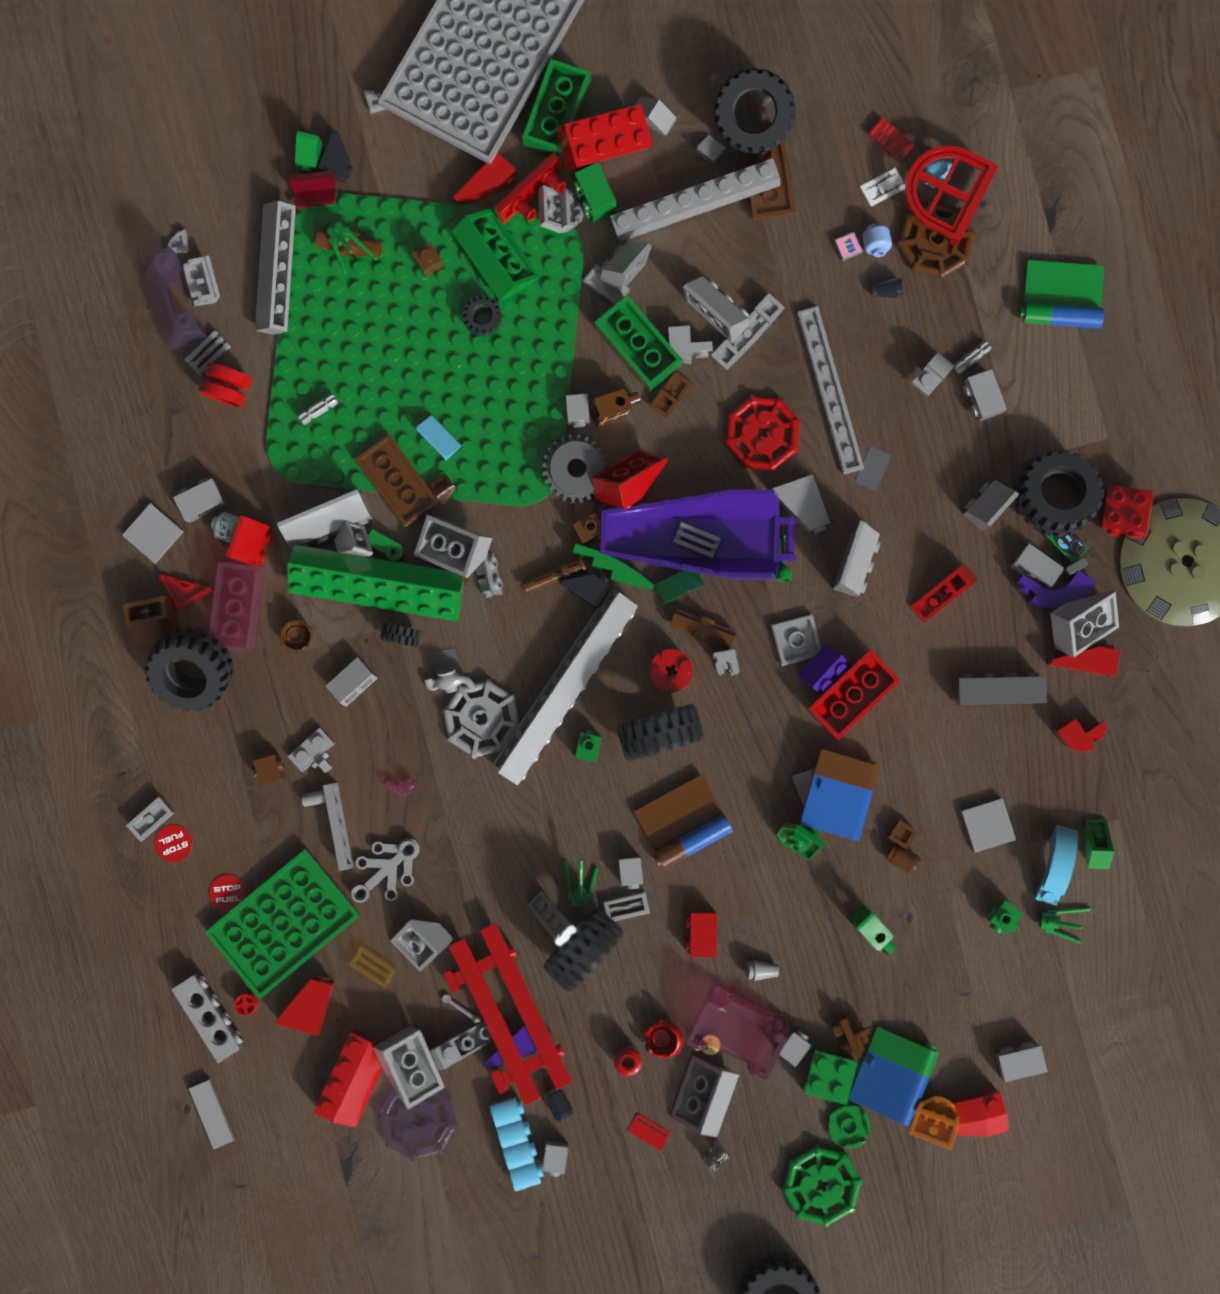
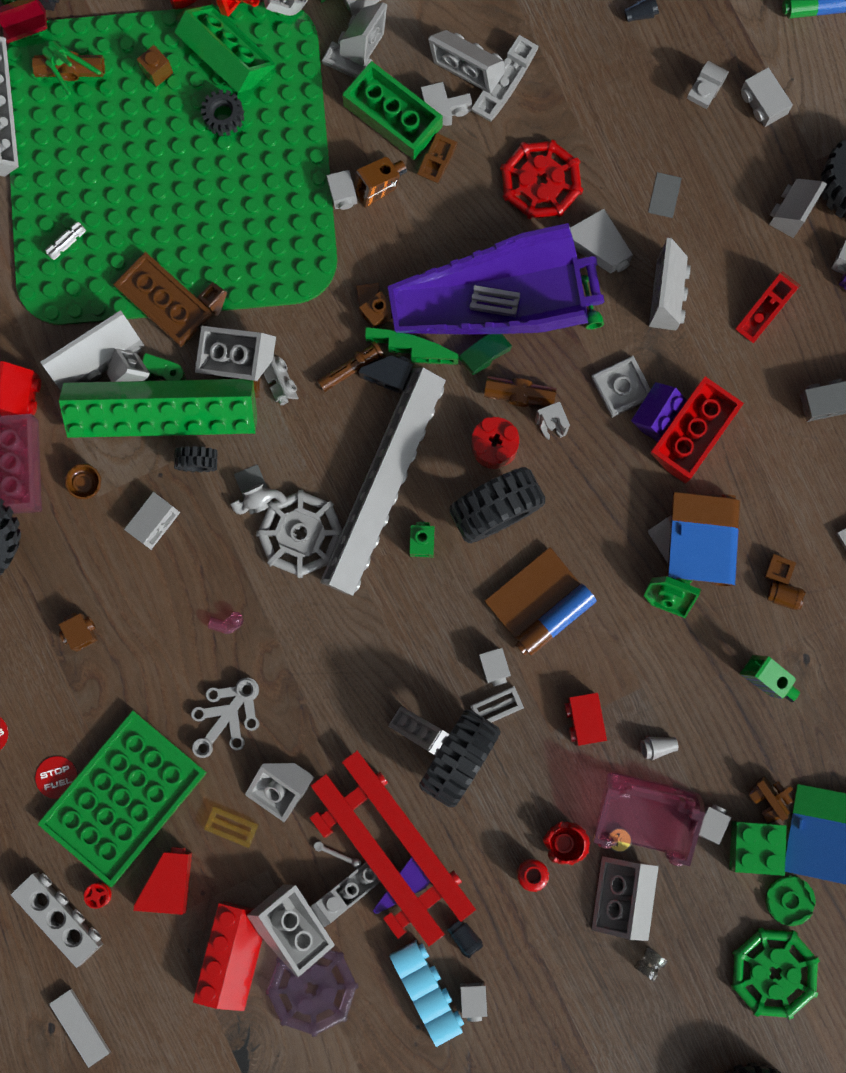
camera: 15 degrees left, 5 degrees down
(313, 752) = (124, 604): light grey hinge -> none
(332, 798) = (152, 648): light grey piece -> none
(438, 437) = (199, 246): medium azure slope -> none
(557, 471) = (340, 265): dark grey gear -> none
(579, 896) = (444, 703): green plant -> none
(628, 478) = (408, 250): red slope -> none
(649, 1132) = (571, 951): red sticker -> none
(830, 390) = (603, 124): light grey tile -> none
(971, 357) = (744, 62): light grey axle -> none

